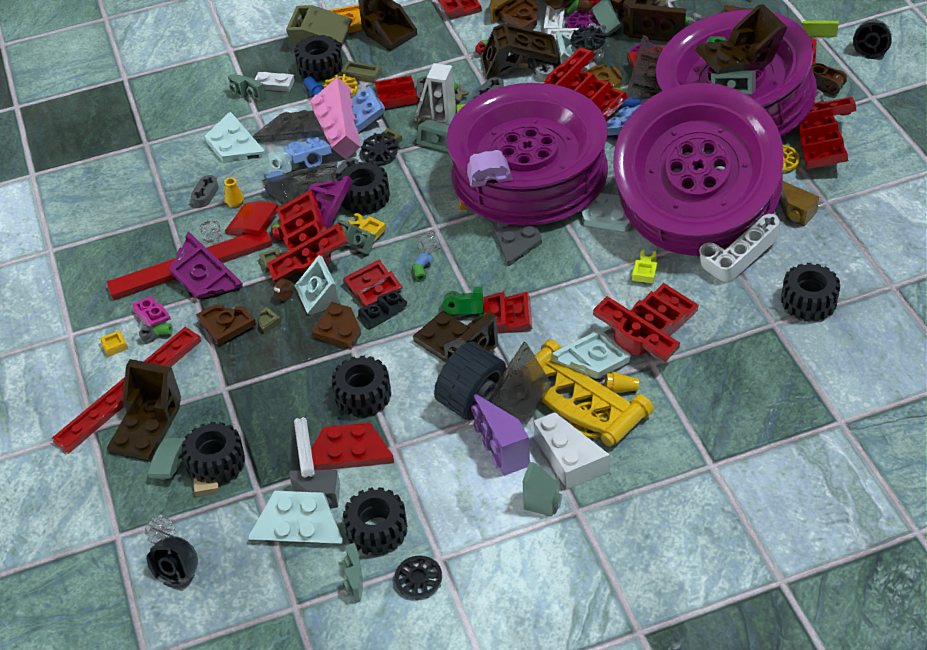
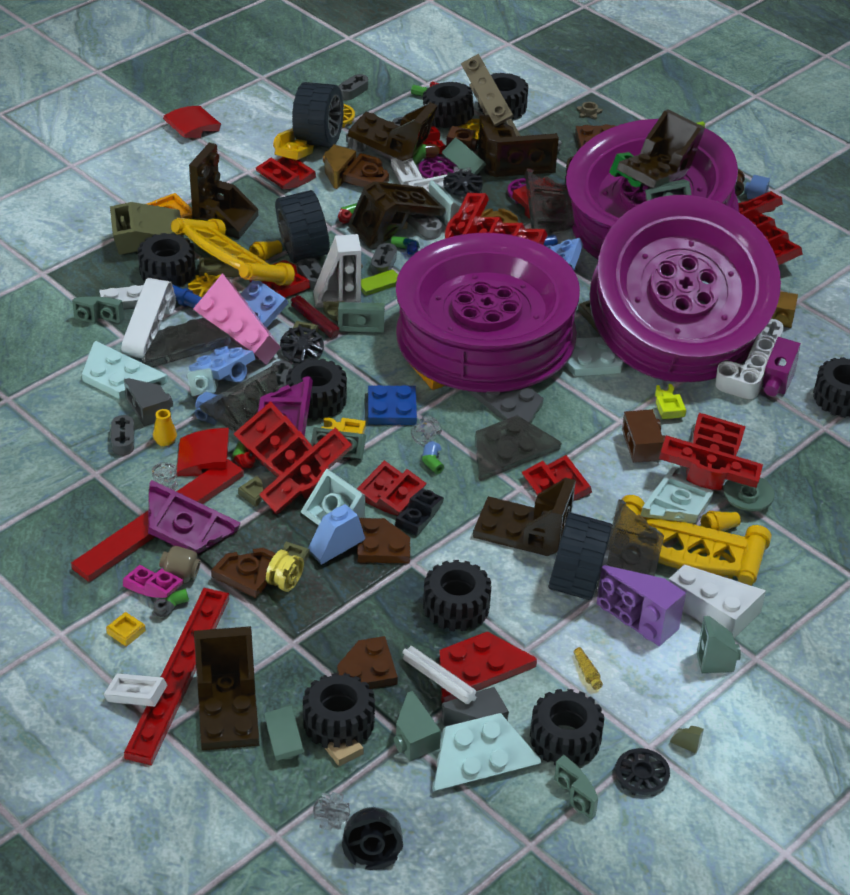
camera: 30 degrees left, 5 degrees down
(85, 392) = (135, 689): none -> white plate
(177, 303) = (181, 563): none -> dark tan head
(237, 167) = (146, 399): none -> dark grey slope
(246, 329) = (284, 570): none -> light yellow wheel
(260, 483) = (416, 729): none -> sand green slope
(264, 423) = (371, 662): none -> reddish brown plate
(274, 99) = (154, 301): none -> white beam
(283, 289) = (295, 518): reddish brown tile -> none
(302, 310) = (336, 534): none -> light blue slope
(366, 45) = (212, 233): none -> yellow piece
(400, 64) = (266, 249): none -> yellow cone
(405, 127) = (315, 316): none -> dark red axle
(418, 215) = (392, 405): none -> blue plate
(429, 45) = (302, 226): none -> black wheel
(430, 477) = (588, 670): none -> clear yellow animal
(464, 302) = (508, 482): green leg -> none
(472, 562) = (688, 738): none -> olive tile
(486, 167) = (474, 330): lavender cylinder -> none
(488, 268) = (510, 445): none -> clear smoke wing
(512, 79) = (404, 242): none -> arm
(600, 283) = (642, 435): none -> reddish brown brick
(658, 370) = (747, 497): none -> sand green dish
(760, 260) = (778, 377): none -> magenta torso
(852, 89) = (758, 186): none -> medium blue plate
(872, 39) = (746, 133): black cylinder -> none

